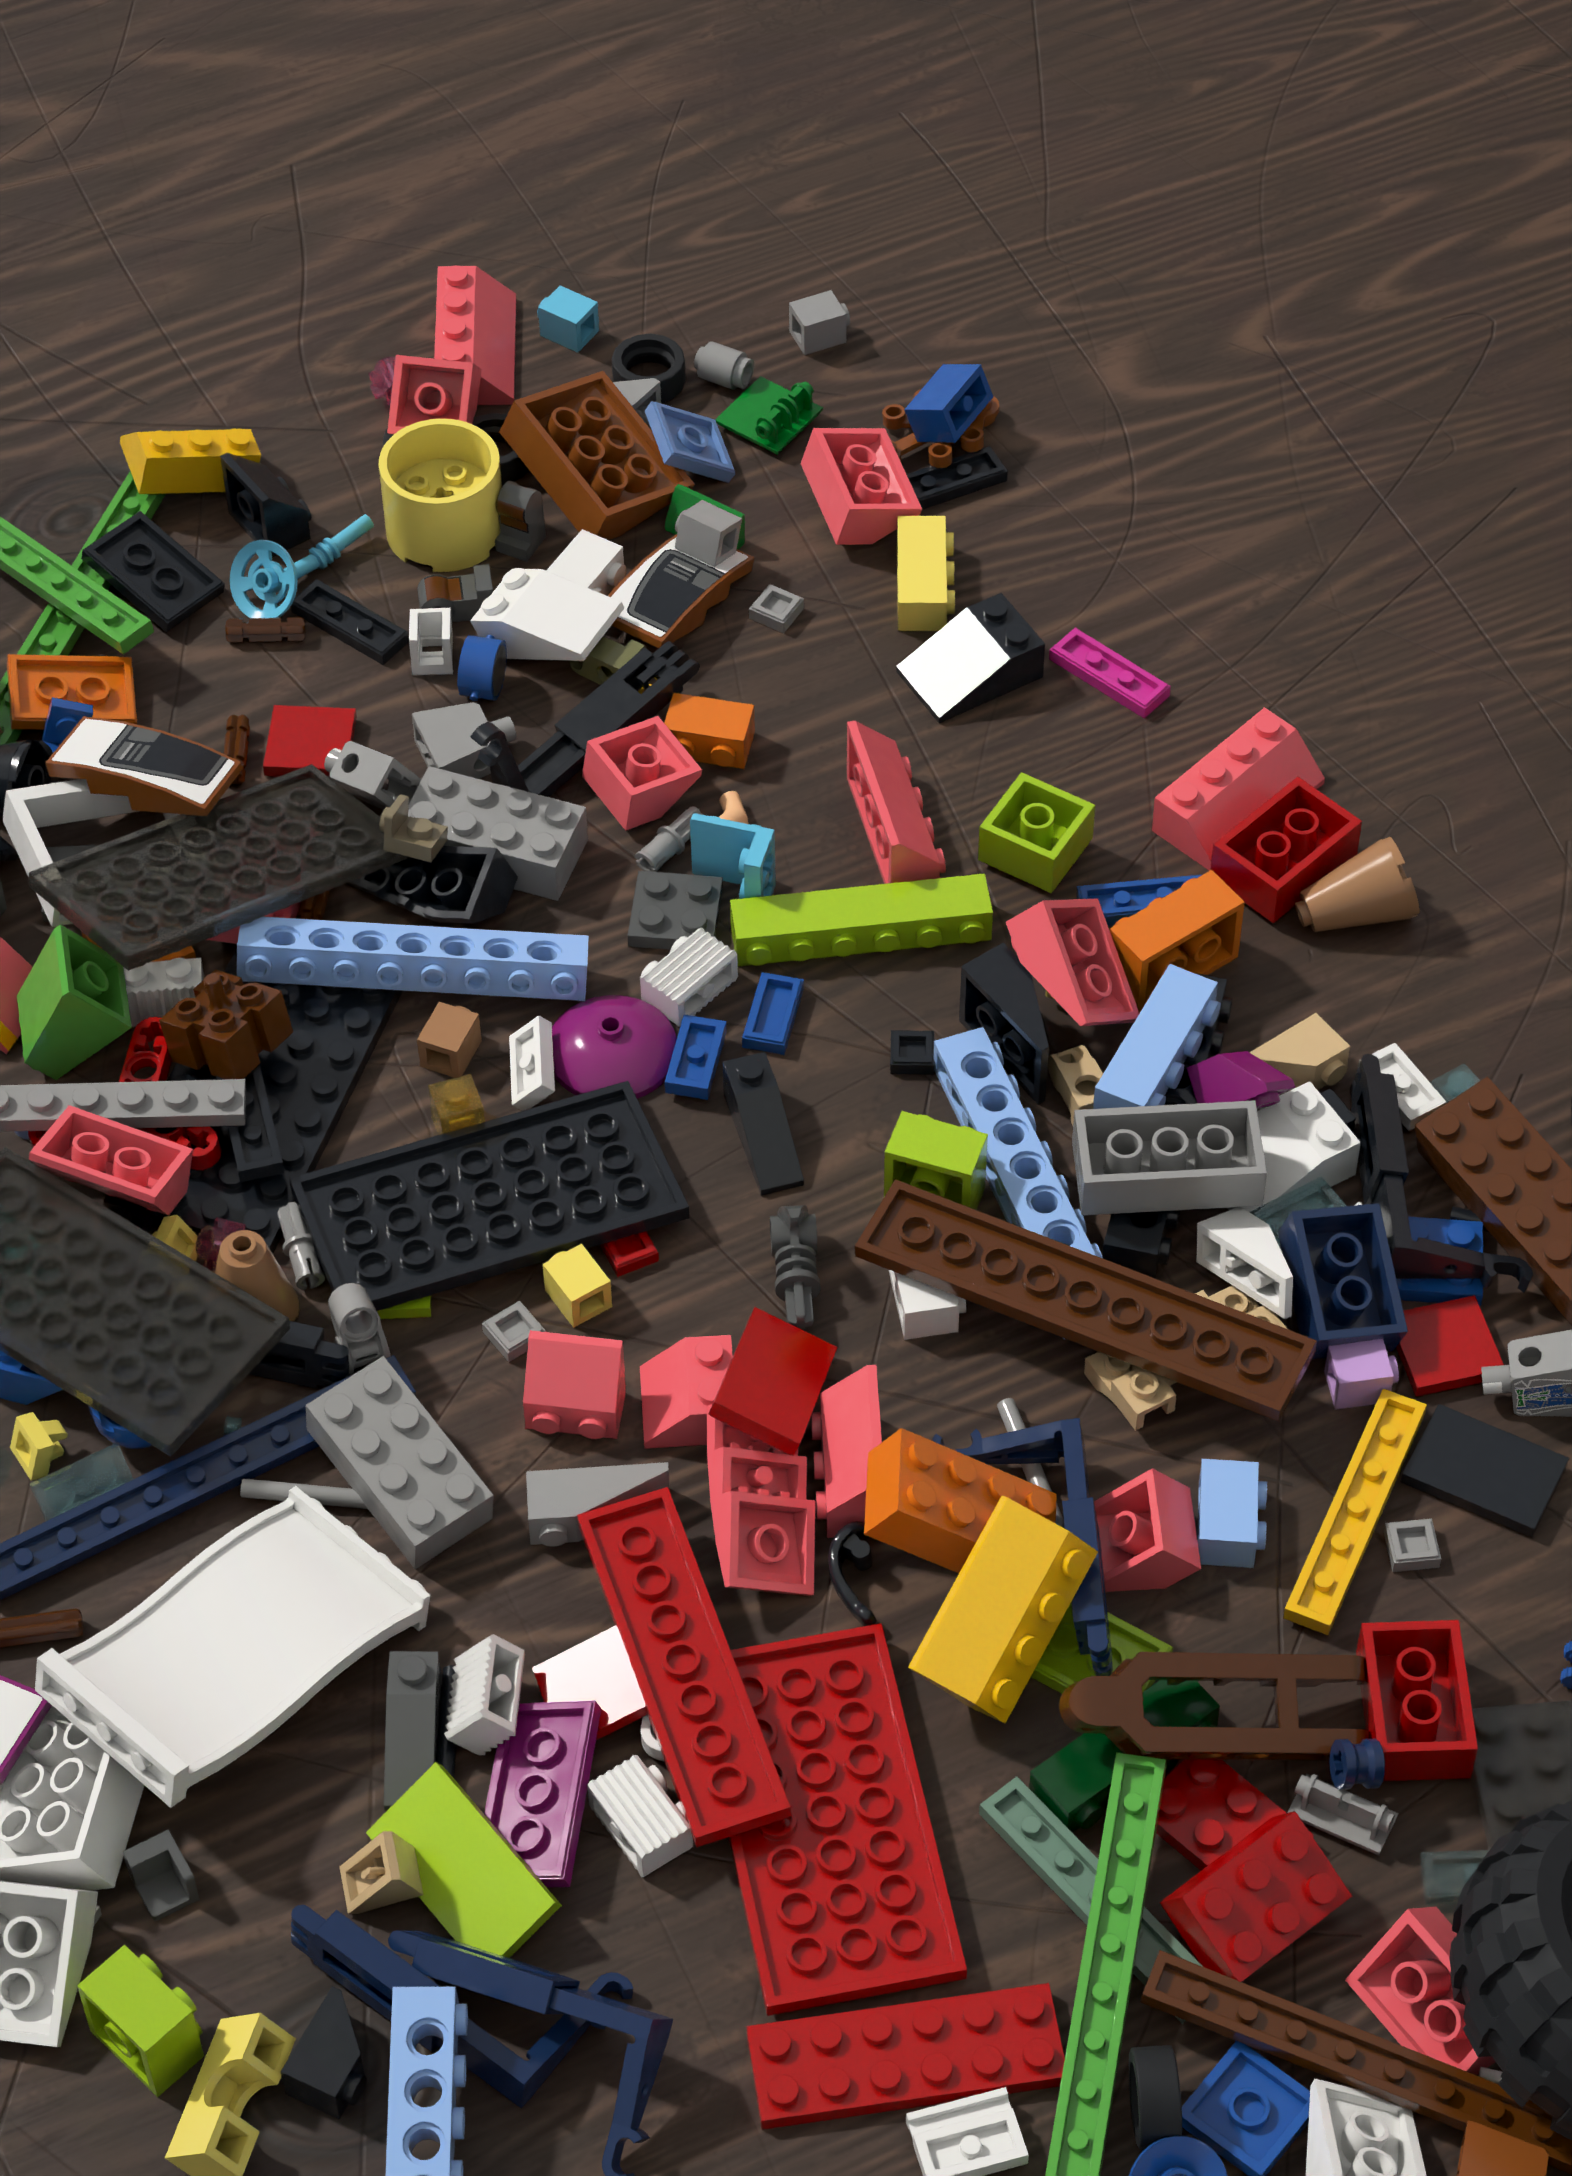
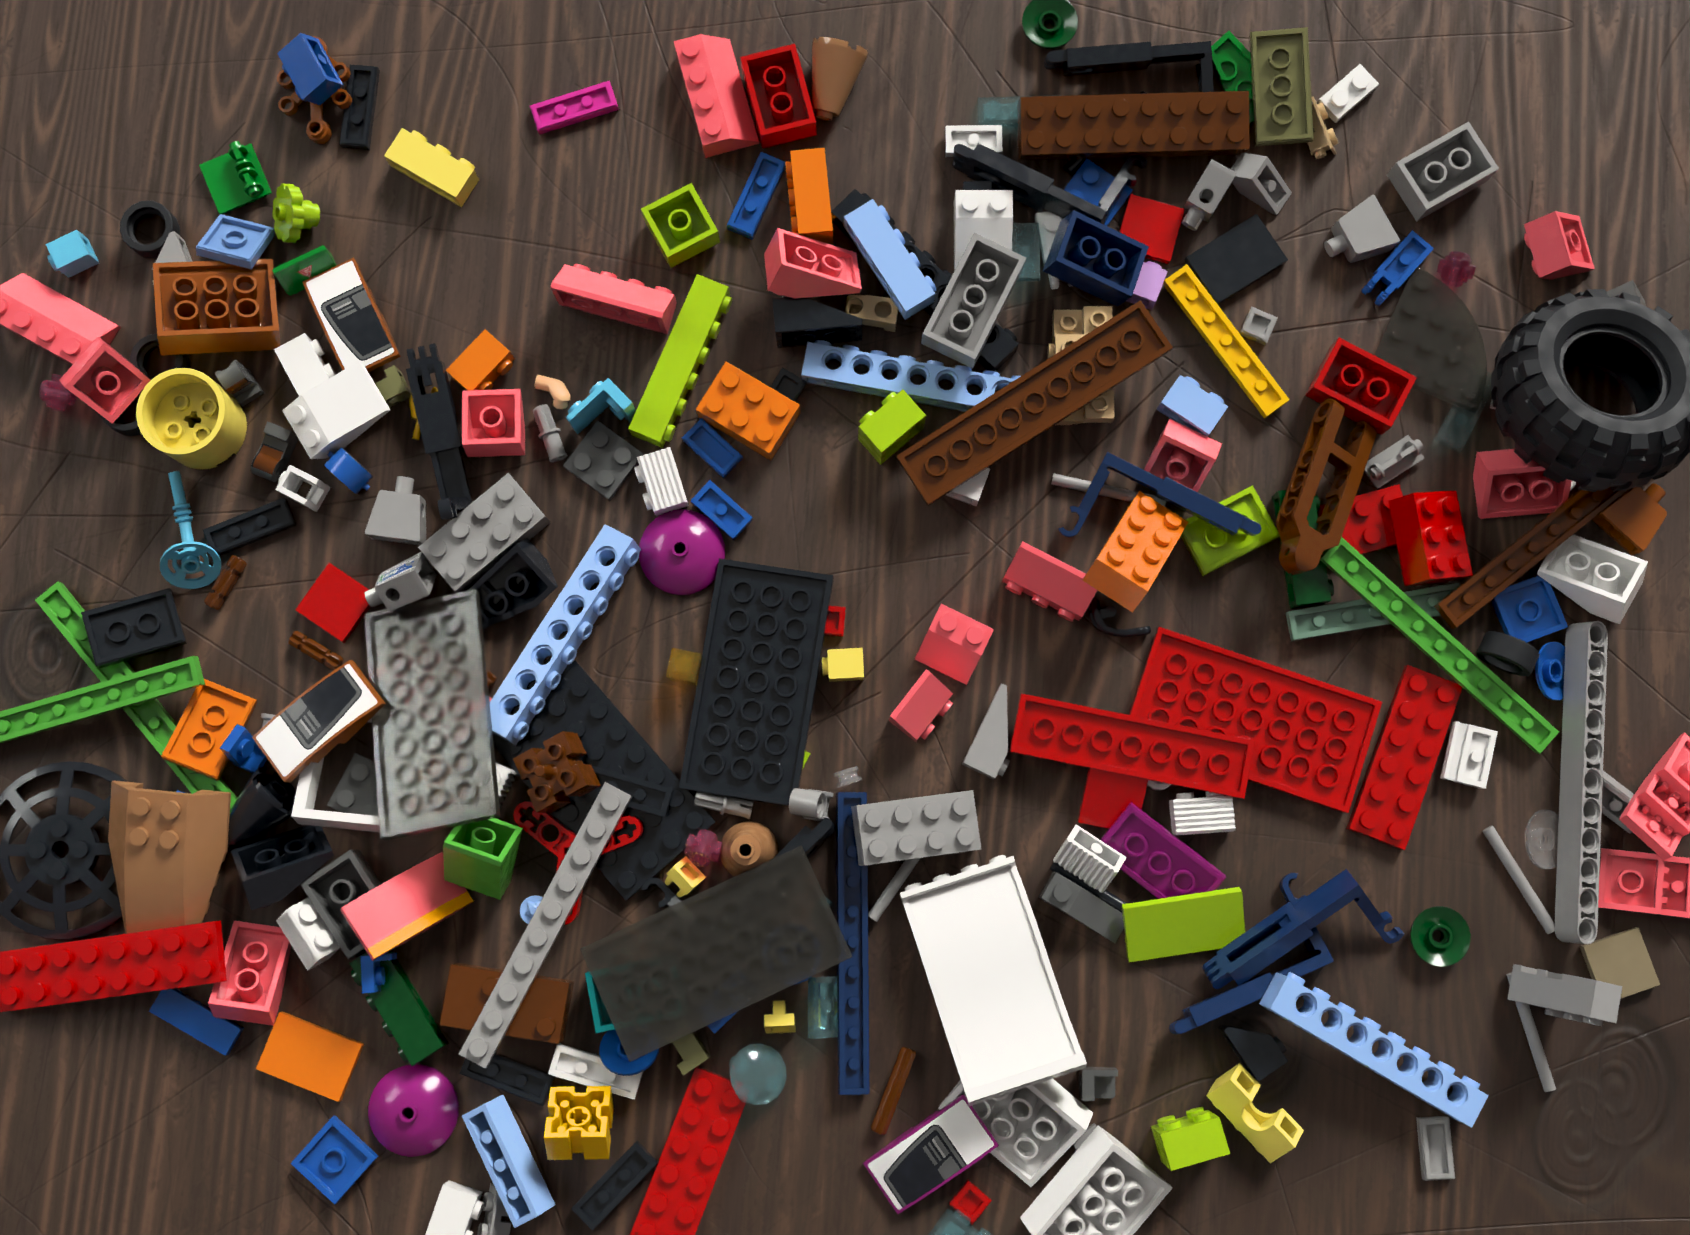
camera: 60 degrees left, 30 degrees up
(115, 1159) = (626, 890): coral slope -> none
(184, 459) = (50, 556): yellow slope -> none
(264, 503) = (122, 530): black slope -> none
(381, 1874) = (1167, 969): tan slope -> none
(411, 835) = (473, 587): dark tan bracket -> none
(423, 1362) = (847, 776): none -> clear bush
(449, 1040) = (626, 641): medium nougat brick -> none
(511, 1330) = (850, 714): light grey tile -> none
(531, 1063) = (672, 605): white plate -> none
(707, 533) = (326, 276): light grey brick -> none
(724, 366) = (178, 182): light grey brick -> none
(760, 1513) = (1051, 647): coral slope -> none
(761, 1122) = (793, 501): black slope -> none
(764, 475) = (293, 213): none -> lime plant
(773, 1381) = (986, 598): red tile -> none
(776, 608) = (401, 267): light grey tile -> none
(795, 1251) = (883, 528): dark grey piece -> none
(818, 322) = (177, 103): light grey brick -> none
(847, 1018) = (748, 410): none -> orange brick
(858, 483) = (338, 161): coral slope -> none
(974, 659) = (520, 180): slope -> none
(1003, 1609) = (1211, 563): yellow slope -> none
(1238, 1078) = (937, 229): magenta slope -> none
(1248, 1257) = (1048, 296): white slope -> none
(1308, 1053) = (925, 180): tan slope -> none
(1357, 1763) = (1389, 441): dark blue wheel -> none

